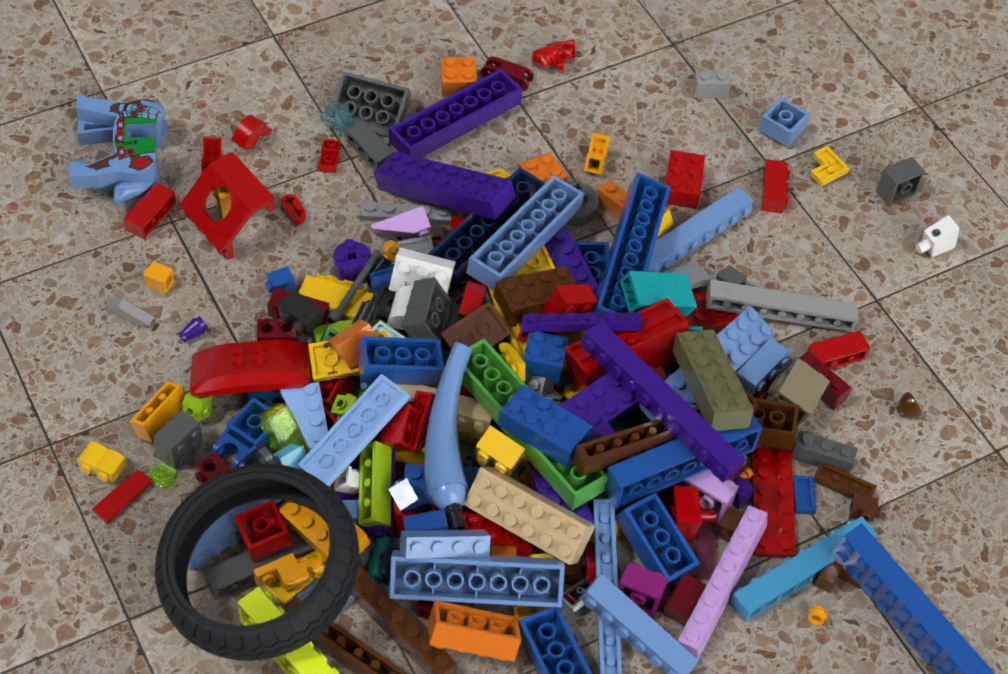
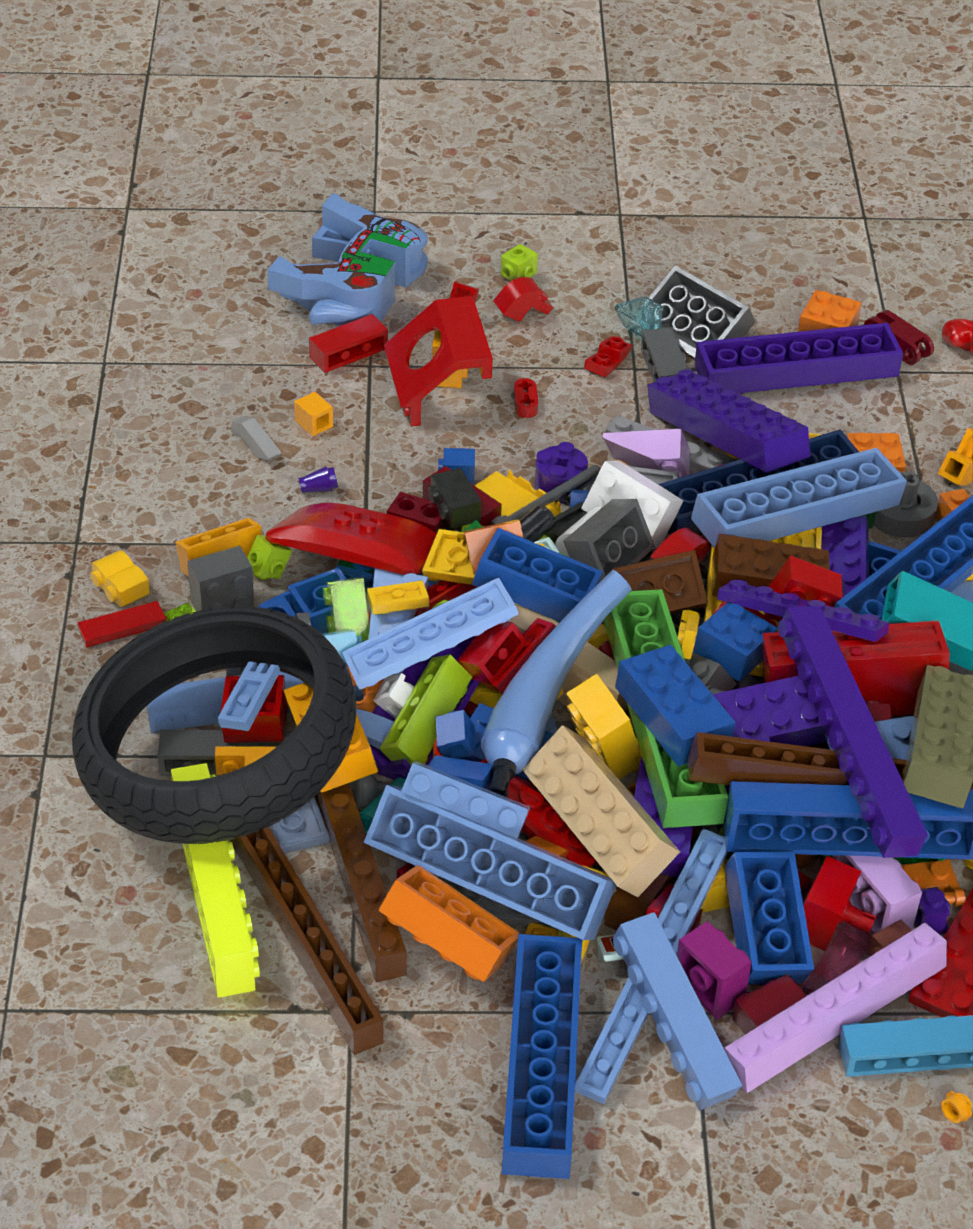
camera: 30 degrees right, 10 degrees down
(232, 103) = (518, 263): none -> lime brick
(284, 540) = (248, 696): none -> medium blue hinge
(314, 409) = (398, 597): none -> yellow plate

